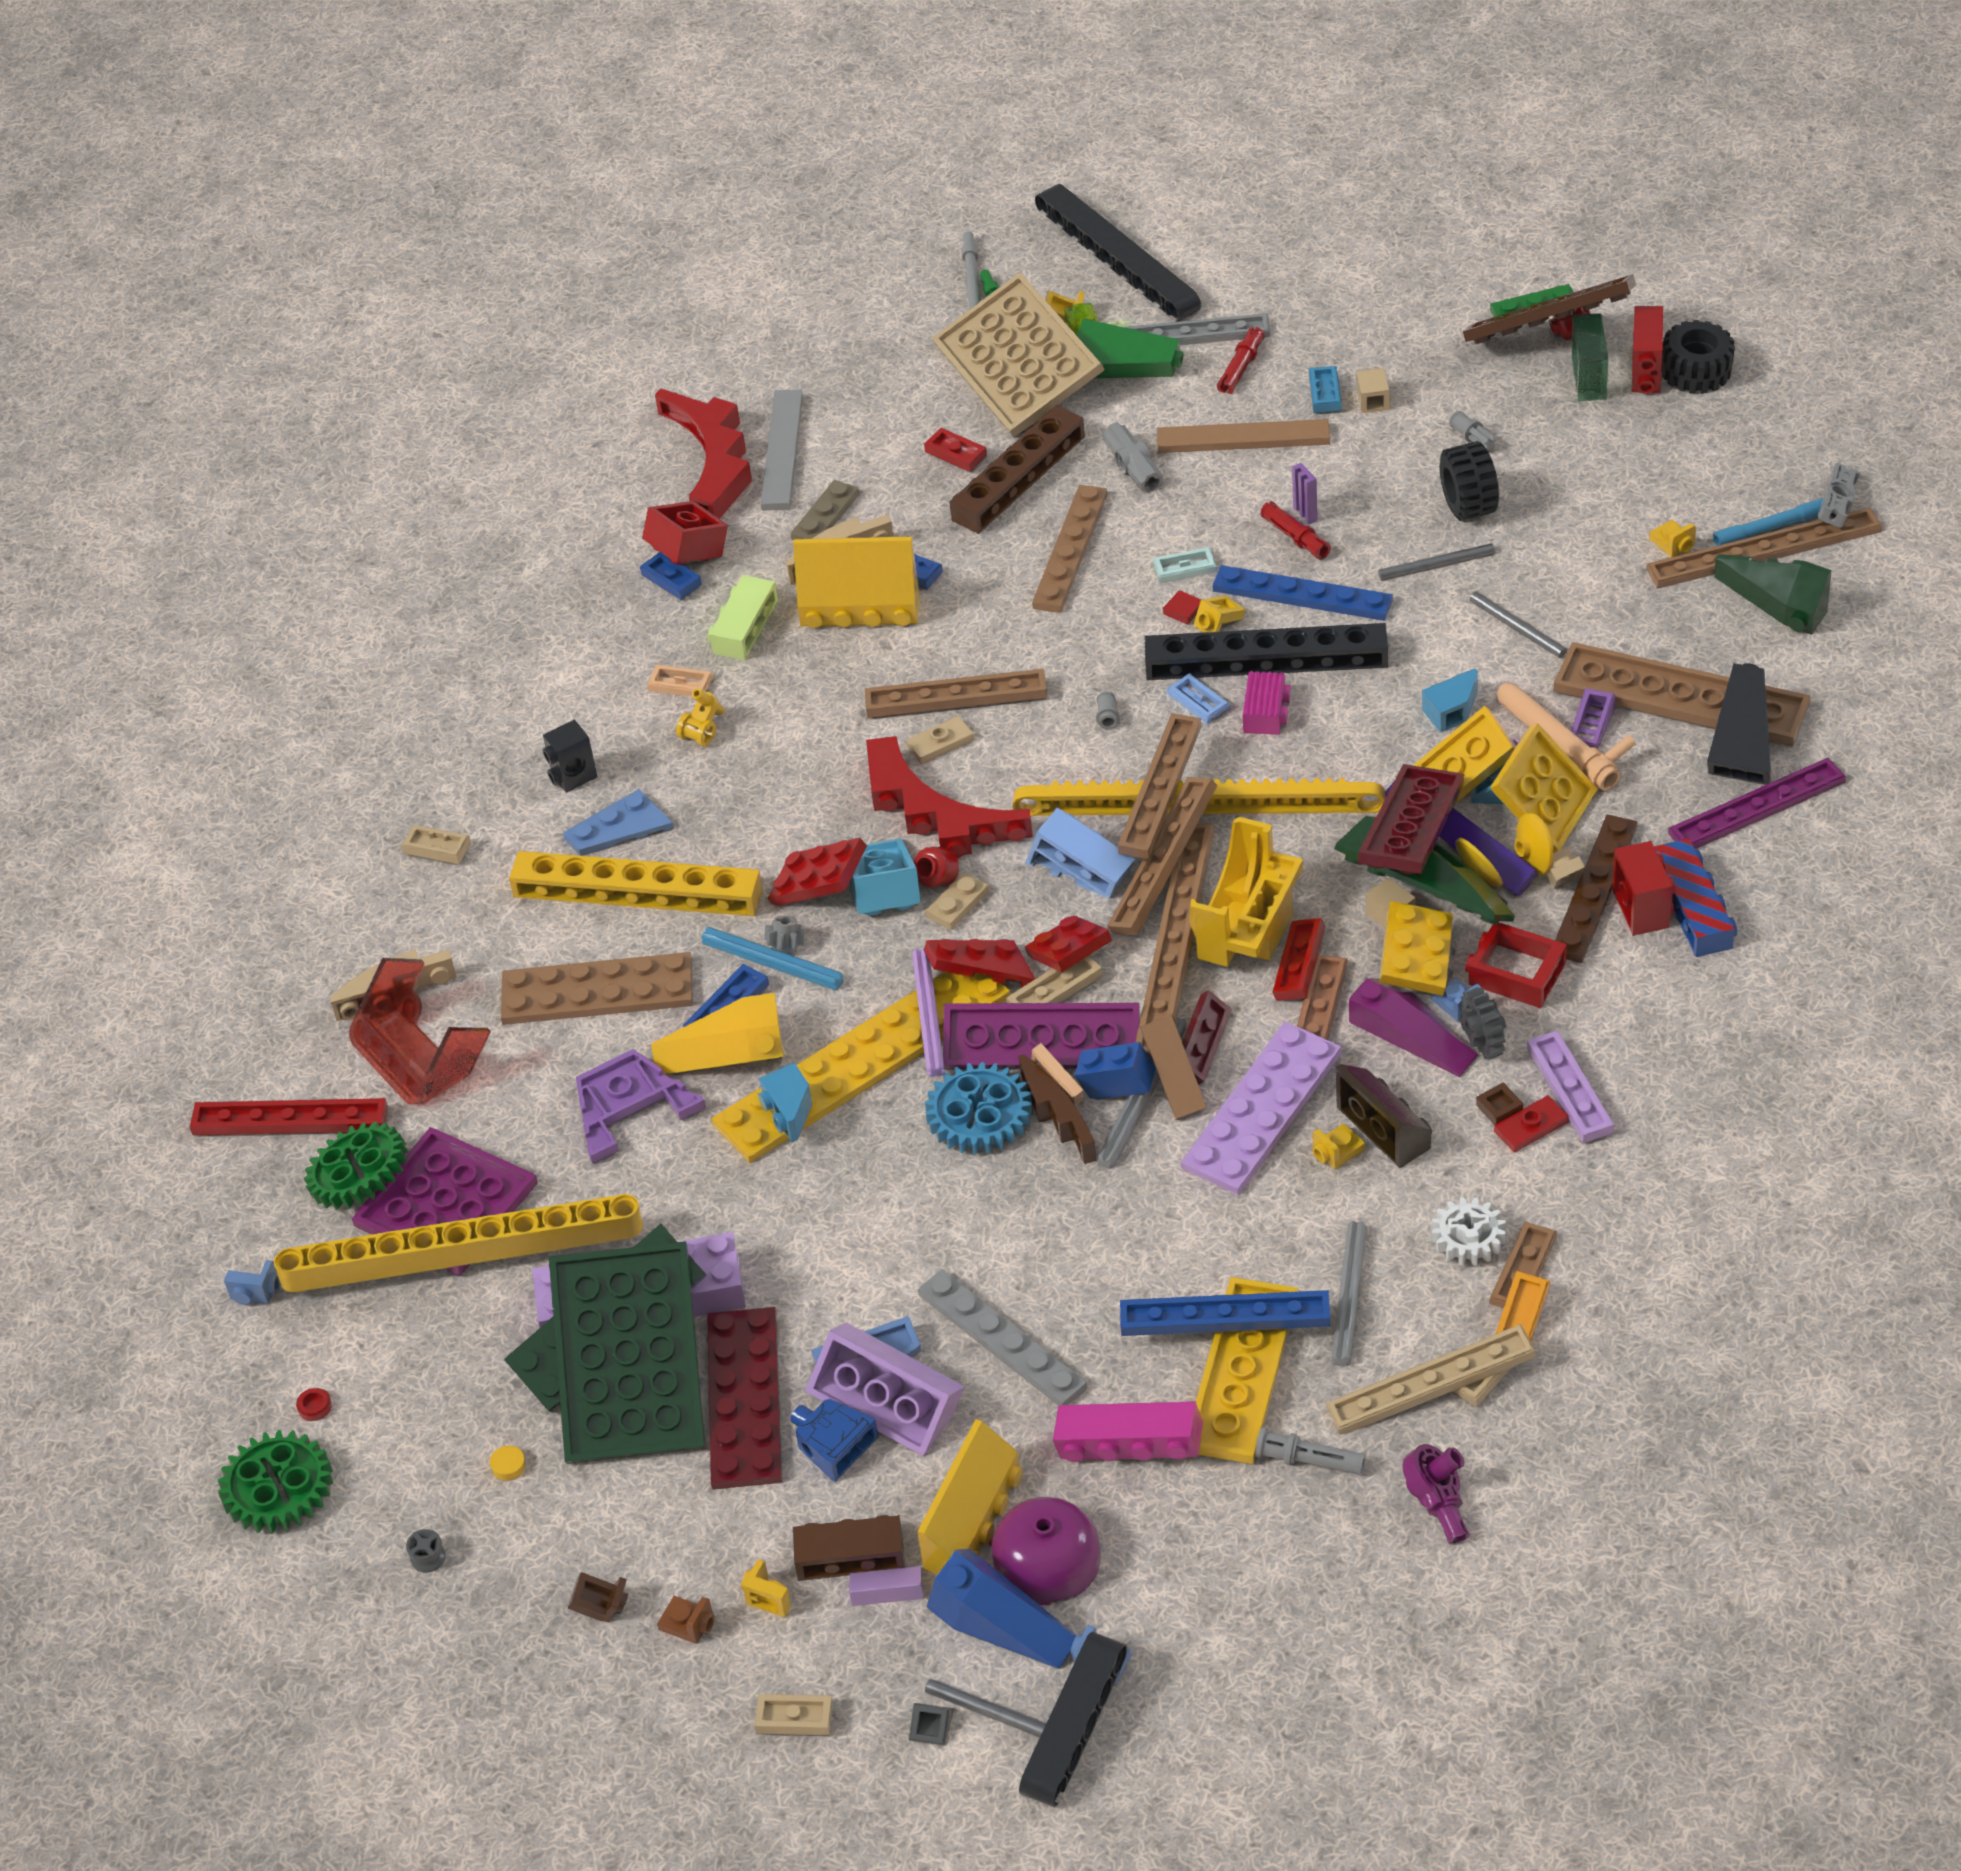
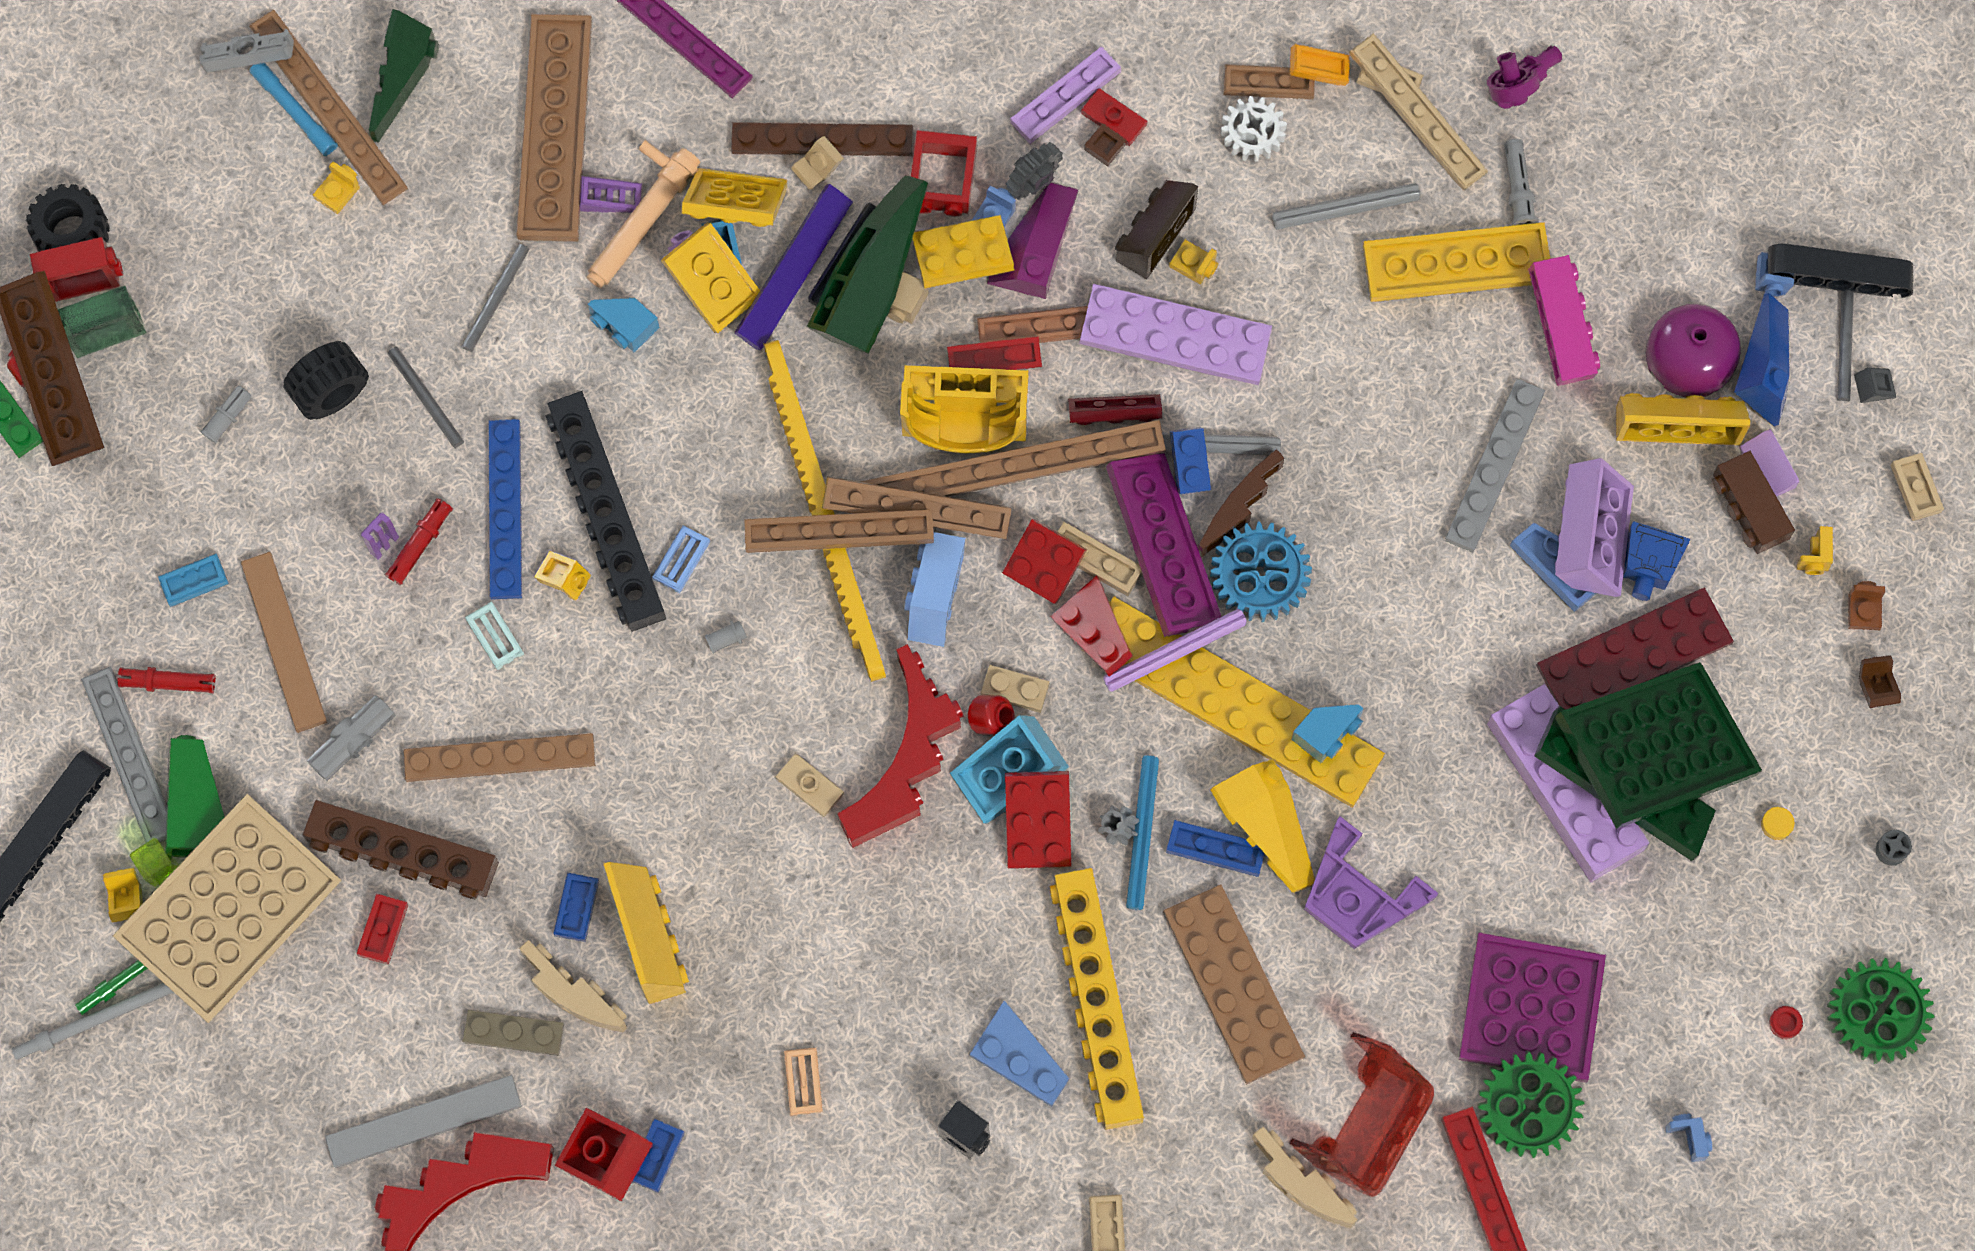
camera: 115 degrees left, 25 degrees up
(458, 1243) = (1591, 971): yellow beam -> none
(700, 718) = (866, 1026): yellow piece -> none
(743, 617) = (701, 1048): yellowish green brick -> none
(955, 693) = (745, 791): medium nougat plate -> none
(1052, 1067) = (1209, 511): light nougat tile -> none
(1173, 1067) = (1172, 409): medium nougat tile -> none
(1182, 607) = (557, 615): red tile -> none
(1225, 1313) = (1420, 282): blue plate -> none
(1265, 702) = (677, 489): dark pink brick -> none
(1372, 390) = (187, 529): tan brick -> none
(1411, 819) = (830, 282): dark red plate -> none
(1478, 862) = (844, 233): yellow dish -> none
(1534, 843) = (803, 189): yellow dish -> none
(1643, 888) = (830, 84): red brick -> none
(1696, 902) = (815, 51): blue brick -> none
(1741, 734) = (600, 52): black slope -> none

